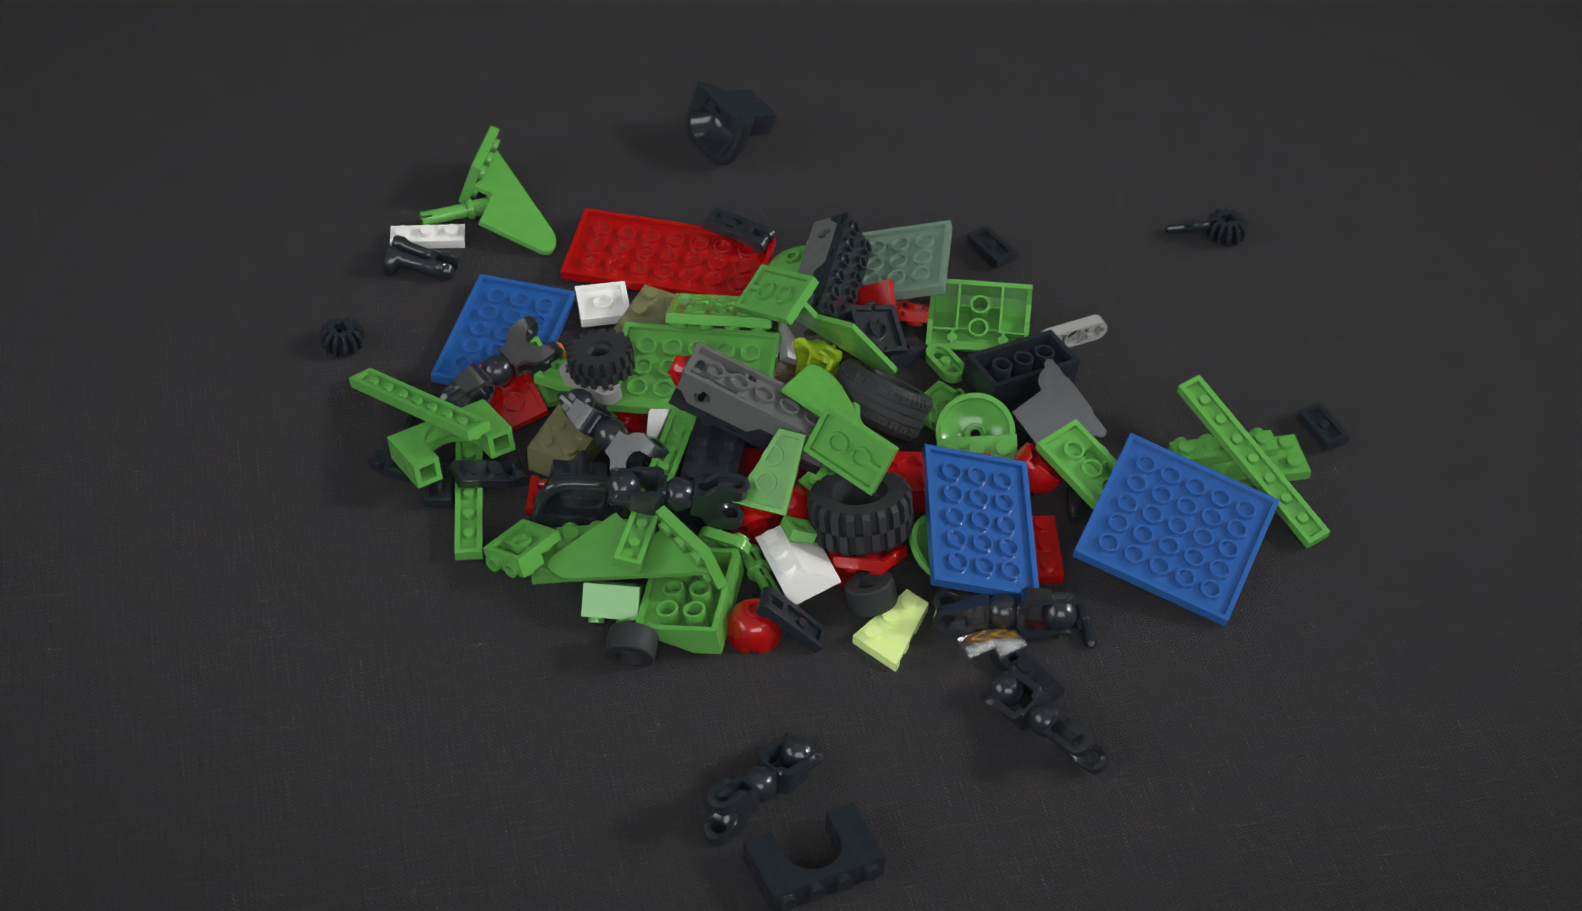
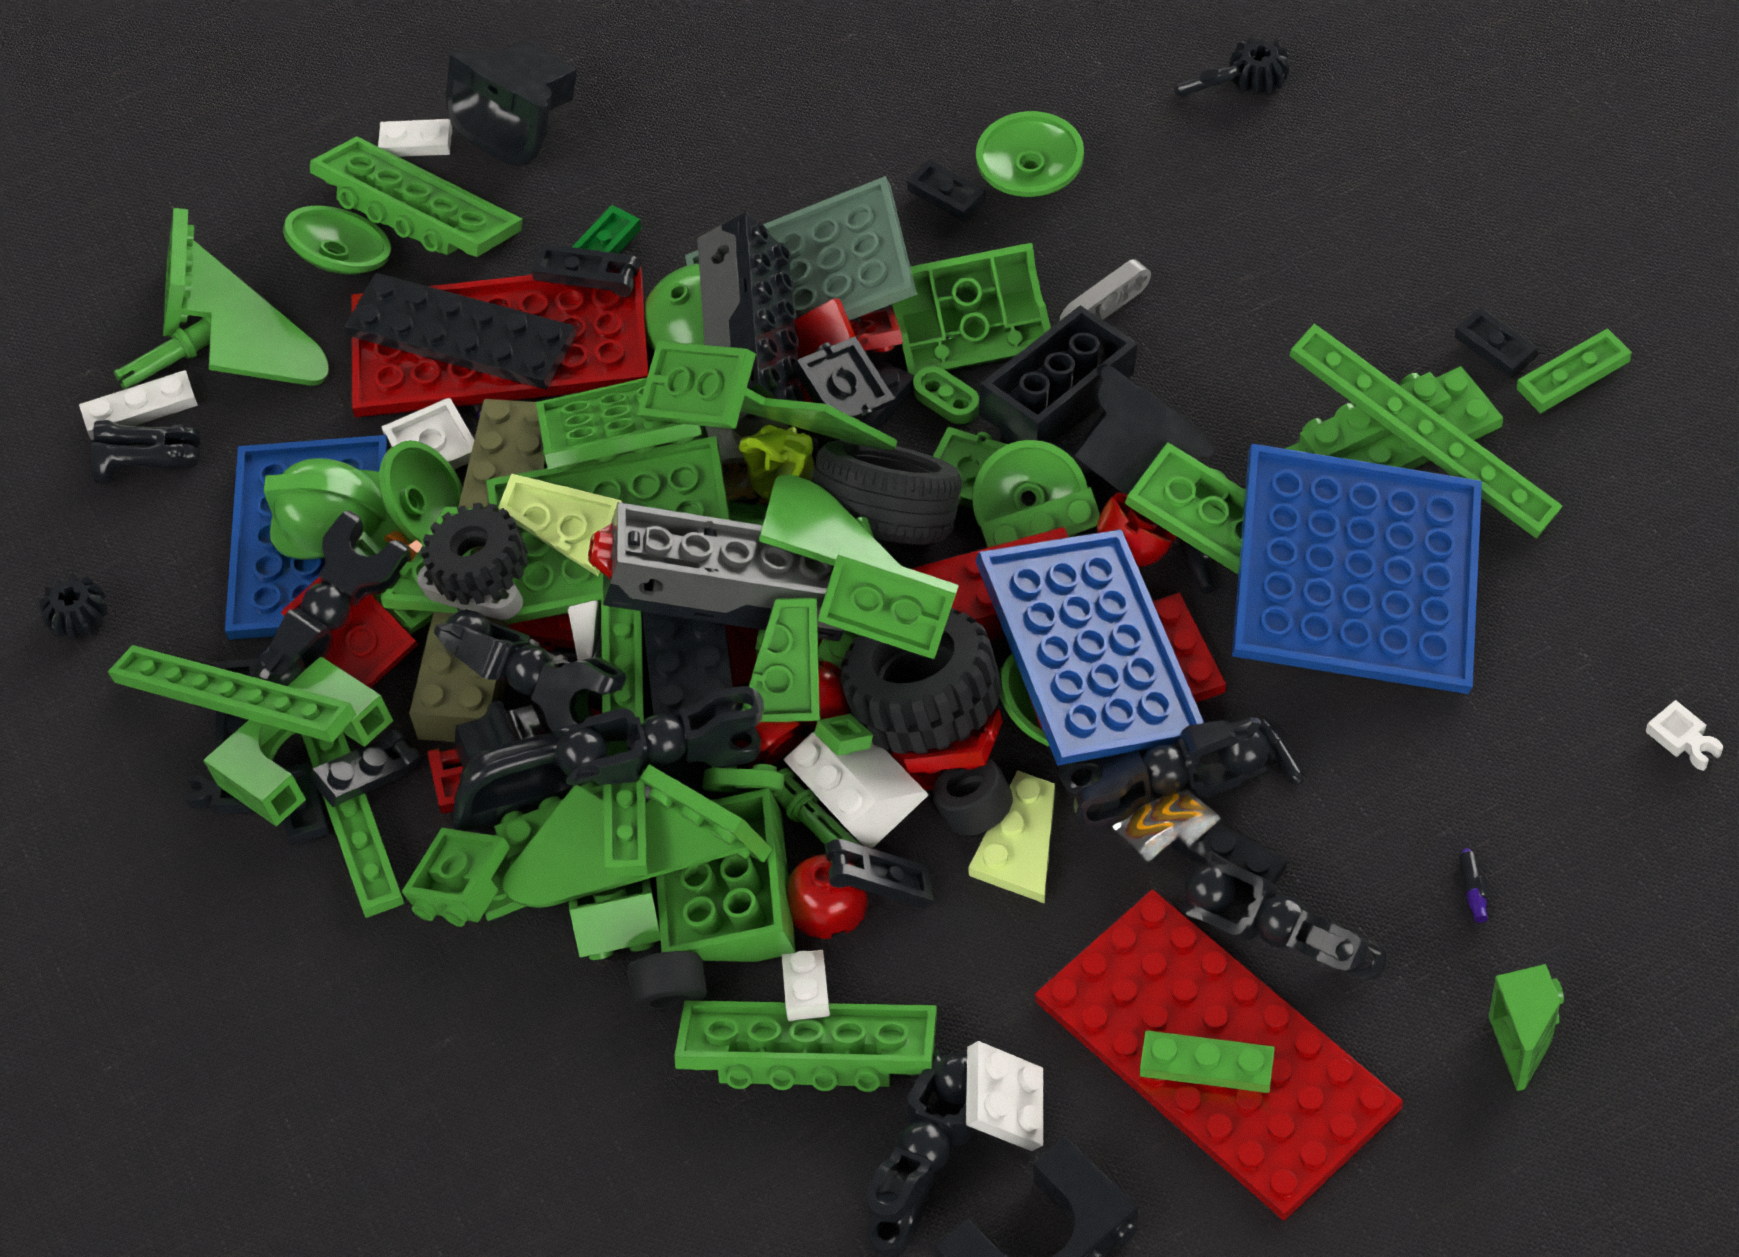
camera: 10 degrees left, 10 degrees up
(513, 303) = (312, 497): none -> bright green piece
(578, 314) = (417, 487): none -> bright green dish
(587, 174) = (336, 240): none -> bright green dish
(645, 165) = (413, 200): none -> bright green plate
(646, 244) = (460, 330): none -> black plate
(658, 349) = (558, 515): none -> yellowish green wing
(661, 132) = (416, 137): none -> white plate
(707, 705) = (849, 1048): none -> bright green plate
(720, 672) = (805, 985): none -> white plate
(766, 214) = (610, 231): none -> green plate
(823, 769) = (1004, 1096): none -> white plate
(964, 787) = (1207, 1061): none -> bright green plate
(976, 789) = (1172, 978): none -> red plate
(1053, 237) = (1030, 153): none -> bright green dish
(1186, 738) = (1476, 885): none -> piece
(1187, 819) = (1525, 1018): none -> bright green slope
(1360, 684) = (1680, 731): none -> white plate
(1369, 456) = (1573, 370): none -> bright green plate

